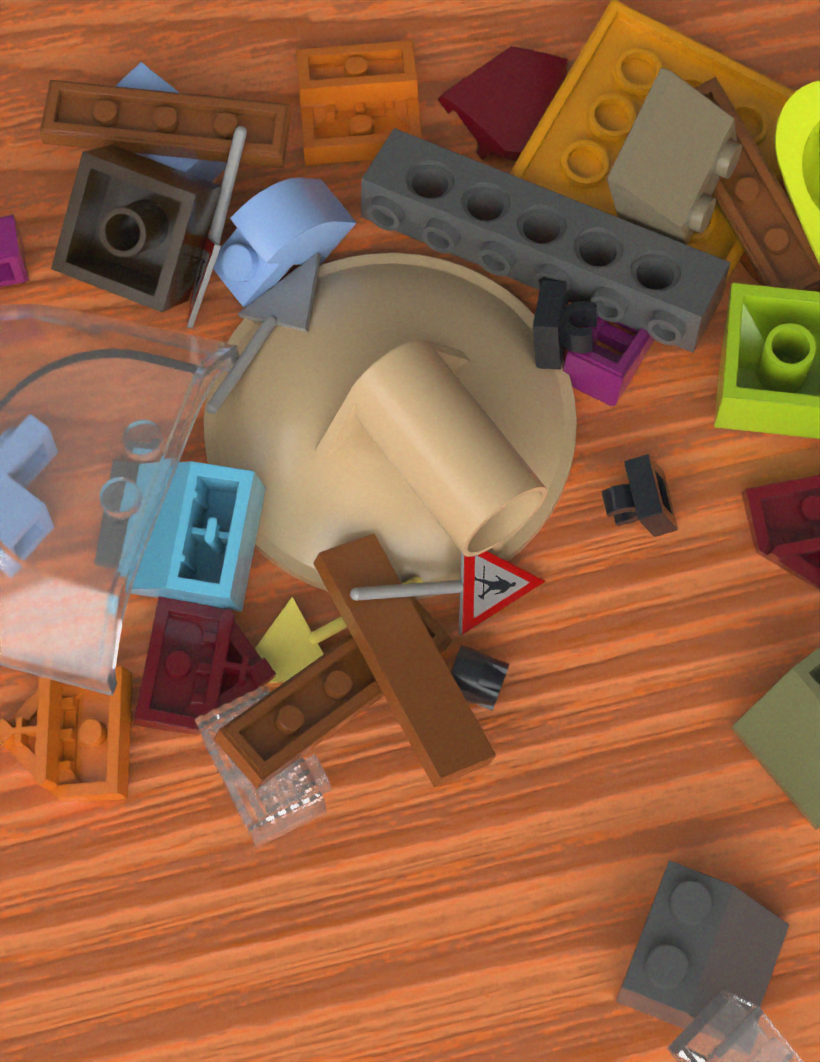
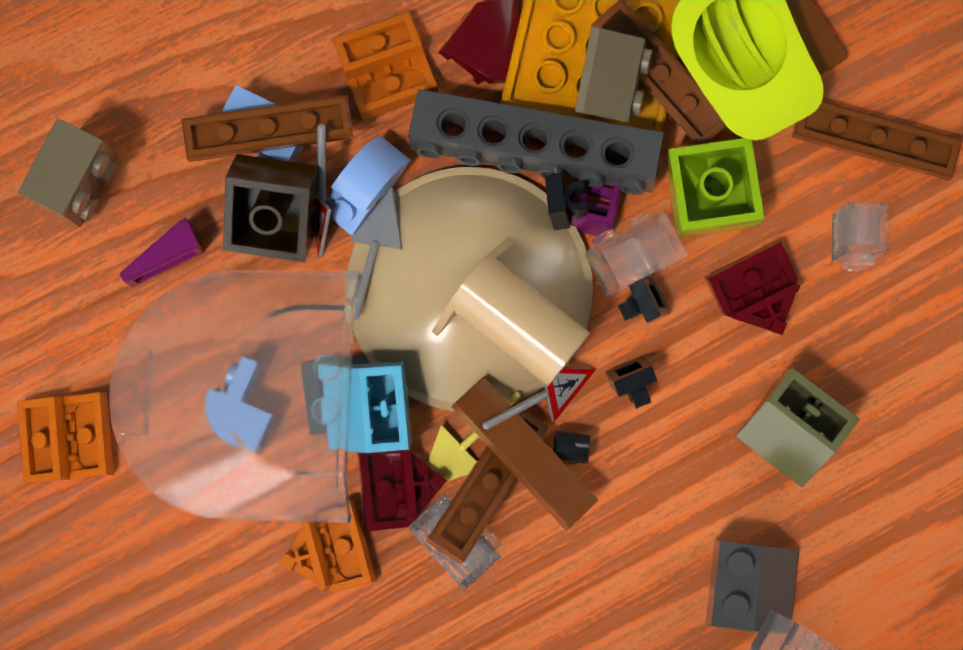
camera: 15 degrees left, 15 degrees up
(595, 604) = (632, 379): none -> black tile
(661, 417) = (635, 253): none -> clear brick

